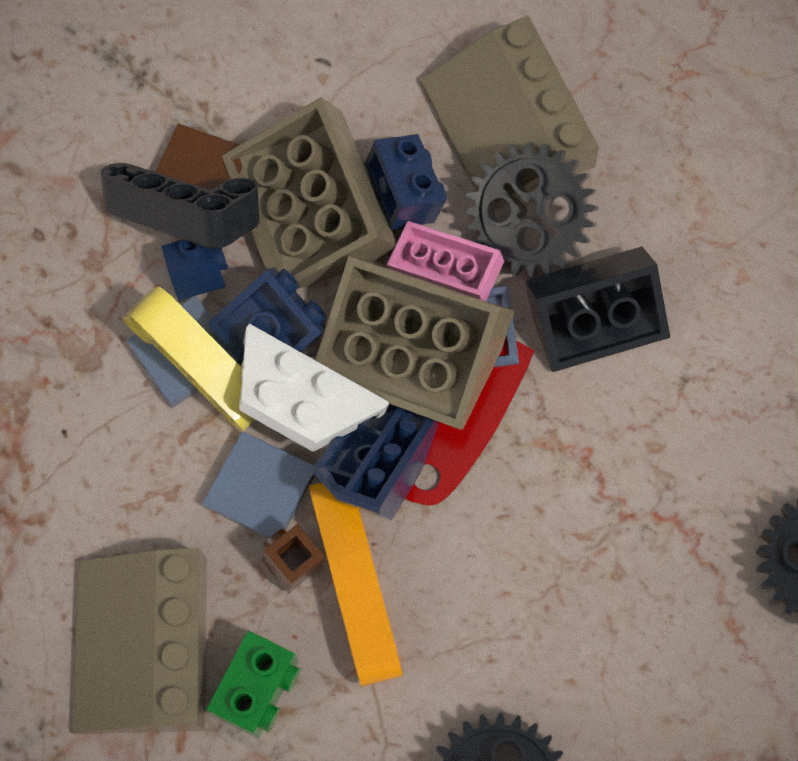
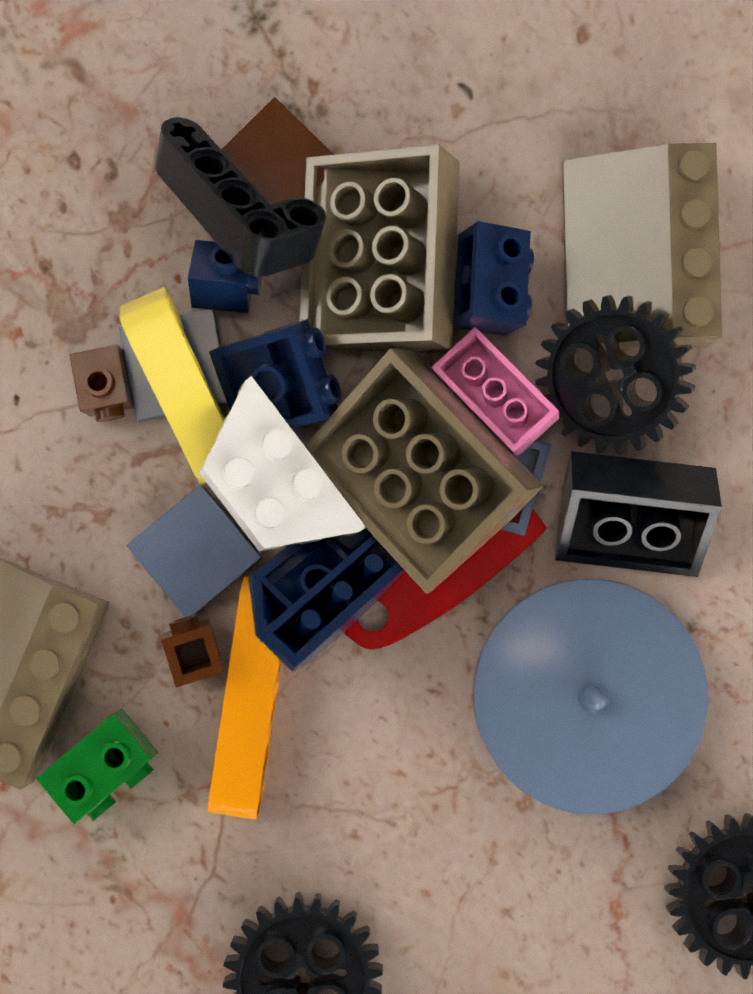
camera: 20 degrees right, 15 degrees up
(131, 385) = (102, 383): none -> reddish brown brick
(628, 463) = (590, 696): none -> sand blue container

